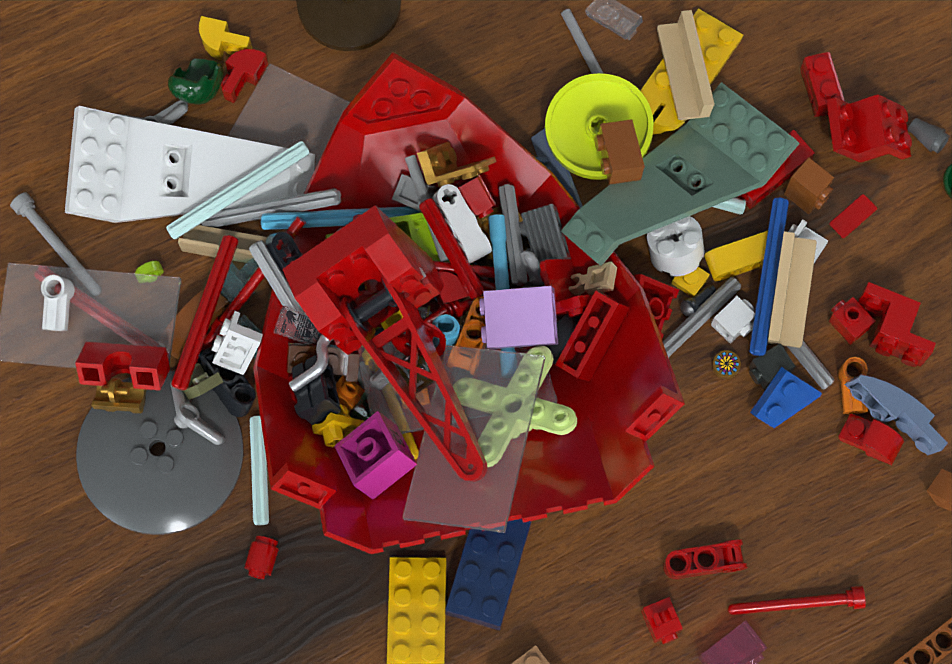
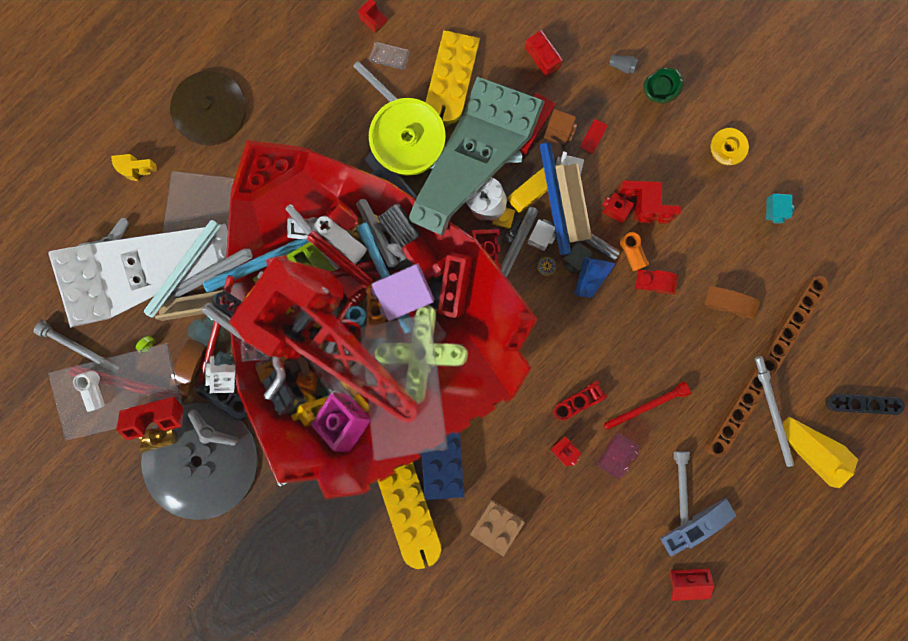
camera: 20 degrees left, 10 degrees up
(198, 82) = (127, 203): dark green piece -> none
(201, 382) = (204, 408): olive bracket -> none
(205, 312) = (191, 361): red axle -> none
(243, 67) = (155, 180): red brick -> none
(261, 557) = (292, 507): red brick -> none
(441, 168) = (311, 205): pearl gold bracket -> none
(597, 278) = (444, 245): tan plate -> none
(619, 152) = (427, 150): dark orange brick -> none
(686, 68) = (450, 75): tan panel -> none
(869, 128) = (585, 73): red bracket -> none
(892, 403) = (664, 255): sand blue slope -> none

